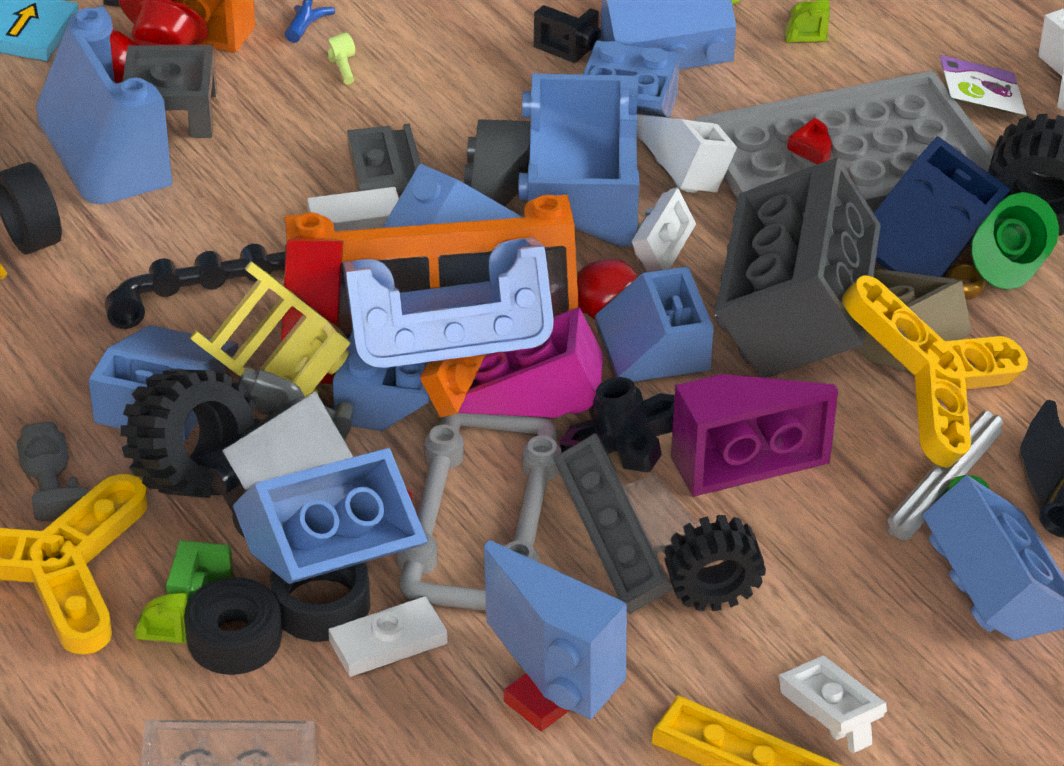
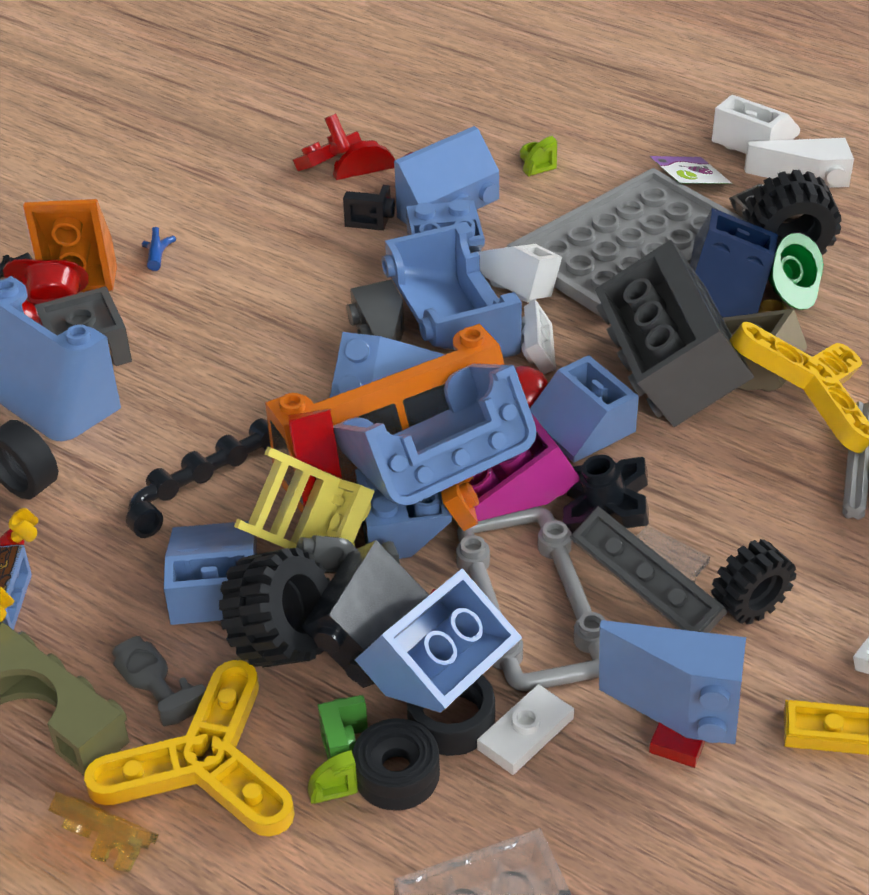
camera: 20 degrees left, 0 degrees up
(341, 49) = (200, 268): yellowish green hand -> none
(356, 209) = (300, 378): white tile -> none
(383, 157) = (288, 341): dark grey plate -> none
(749, 429) = (707, 468): magenta slope -> none
(811, 142) = (606, 240): red tile -> none

